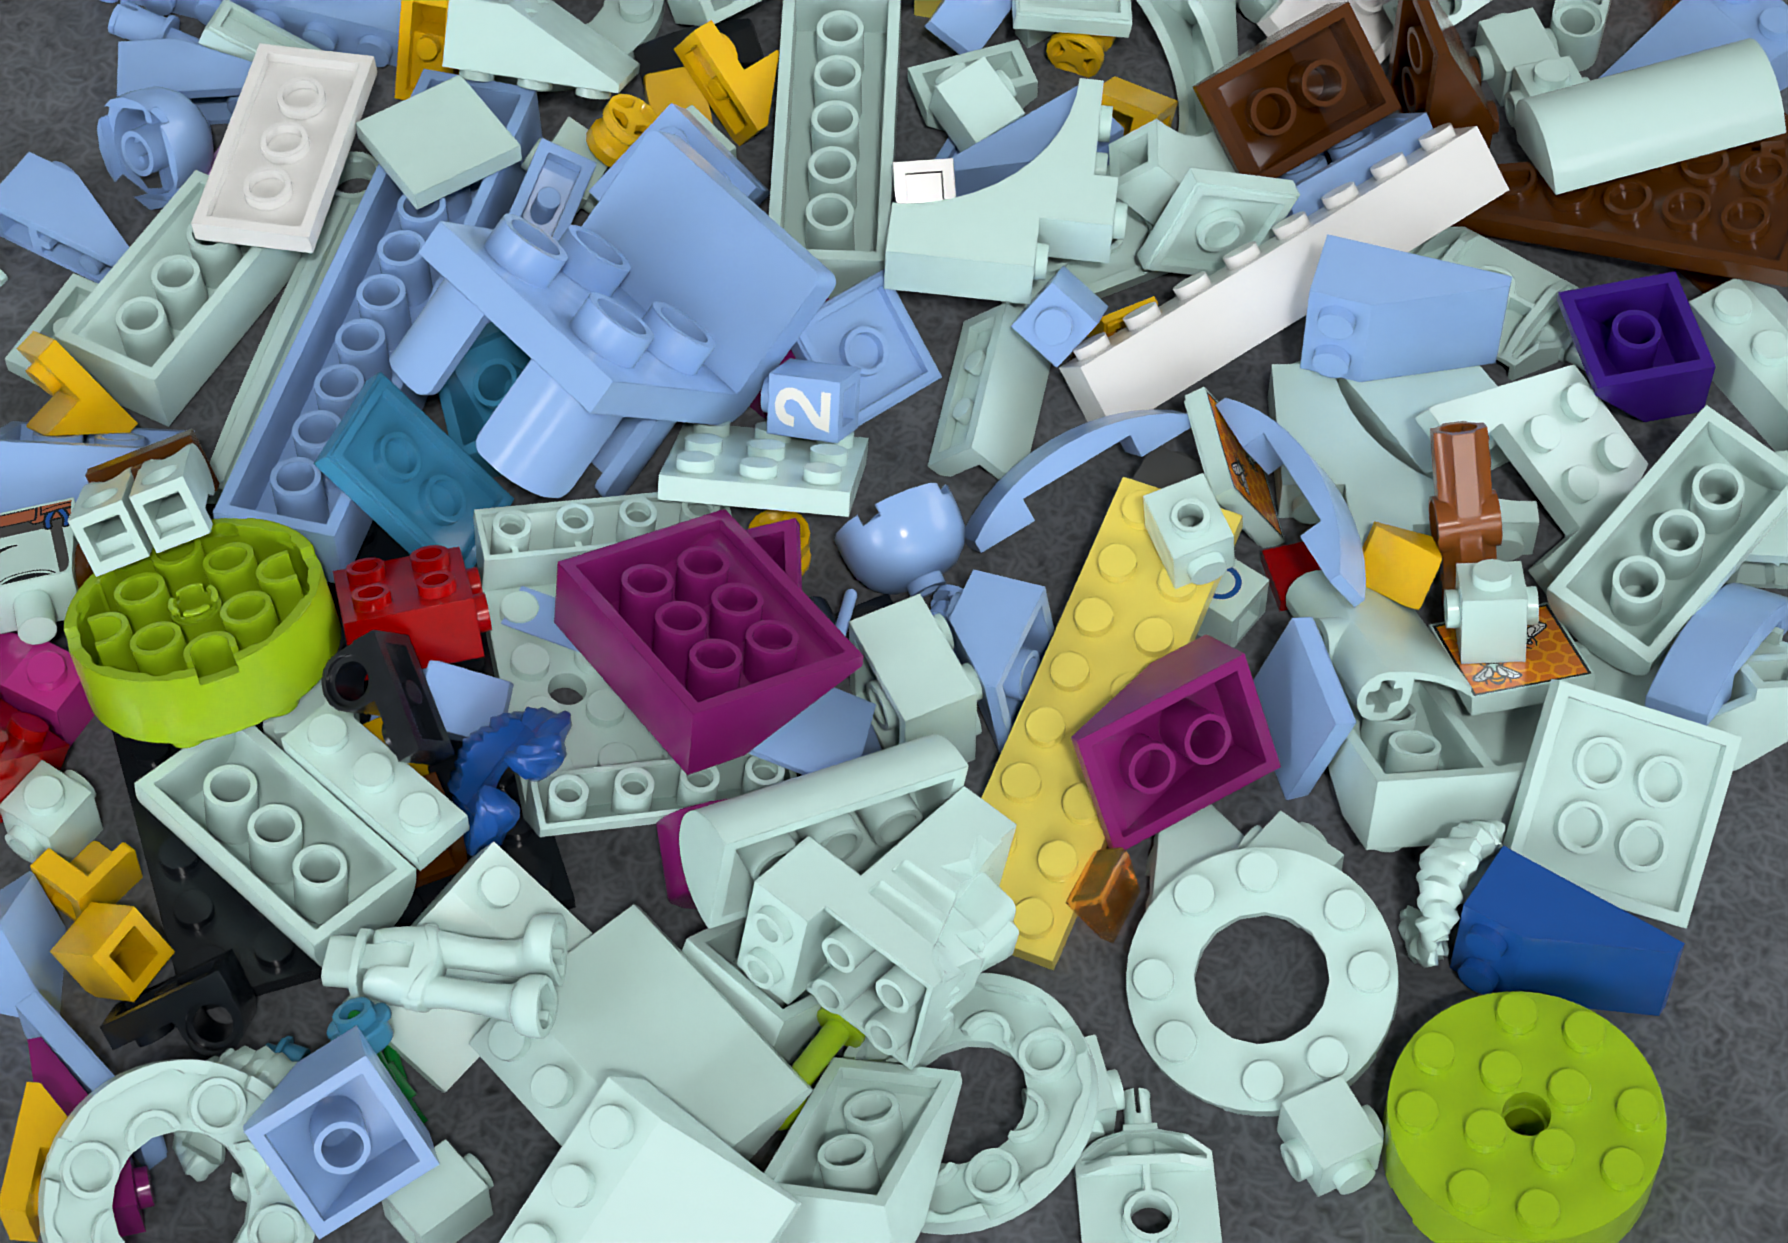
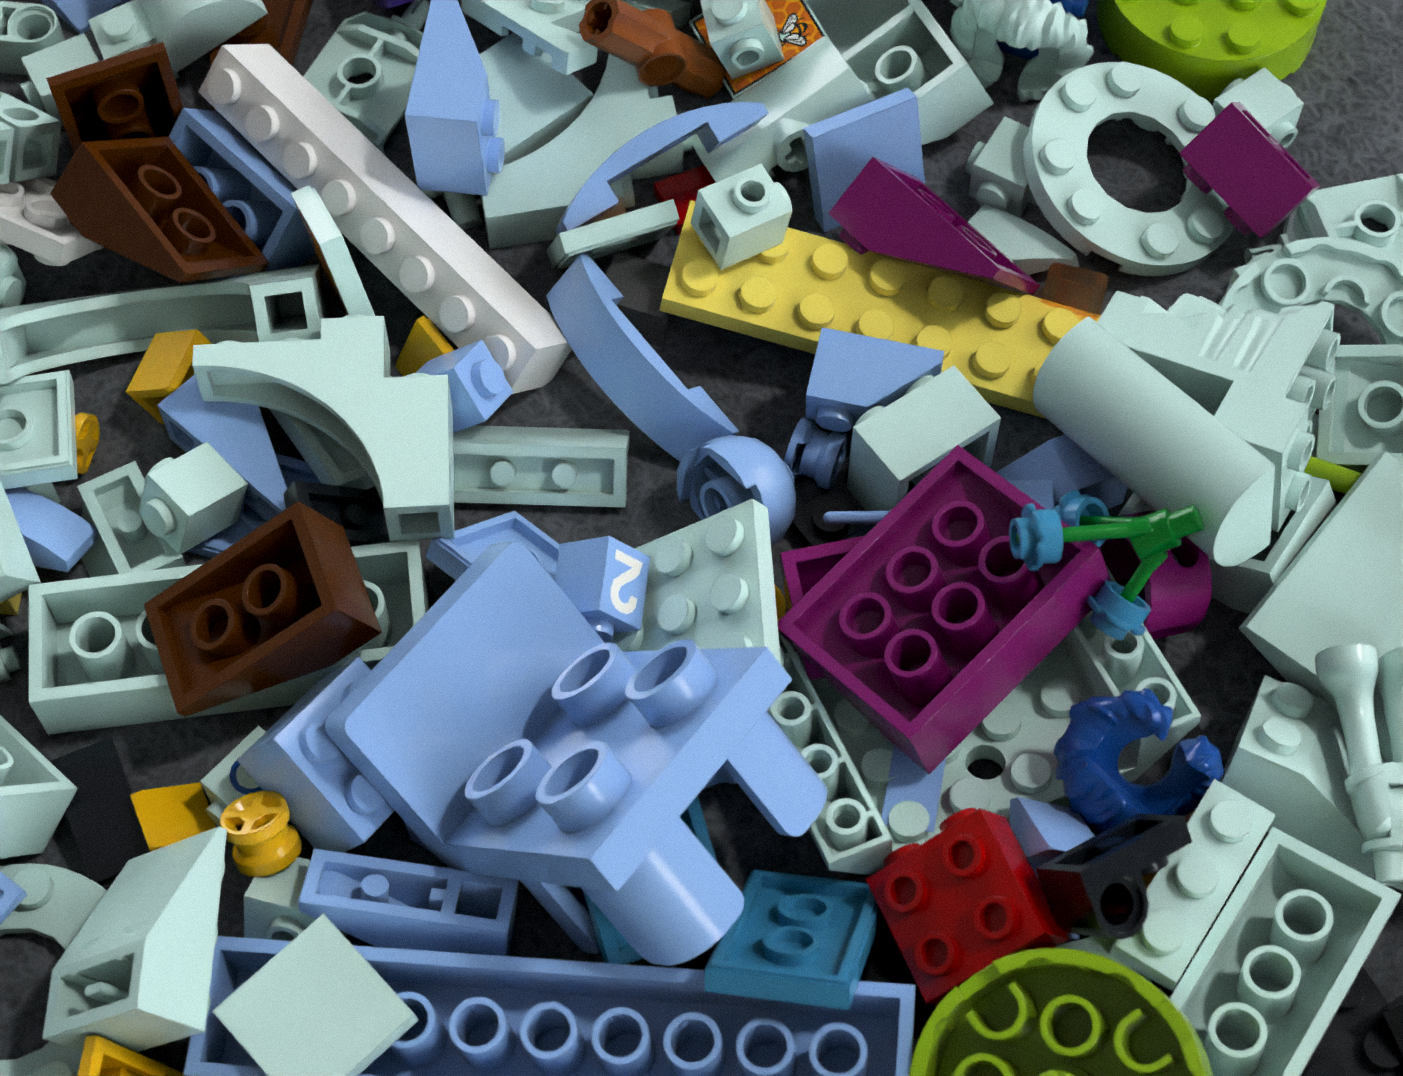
camera: 100 degrees left, 5 degrees up
(663, 767) = (1116, 609): none -> plant
(735, 94) = (158, 749): yellow slope -> none
(820, 132) = (262, 612): none -> reddish brown slope
(1217, 1066) = (1247, 171): none -> magenta brick
(1400, 564) = (695, 88): yellow slope -> none

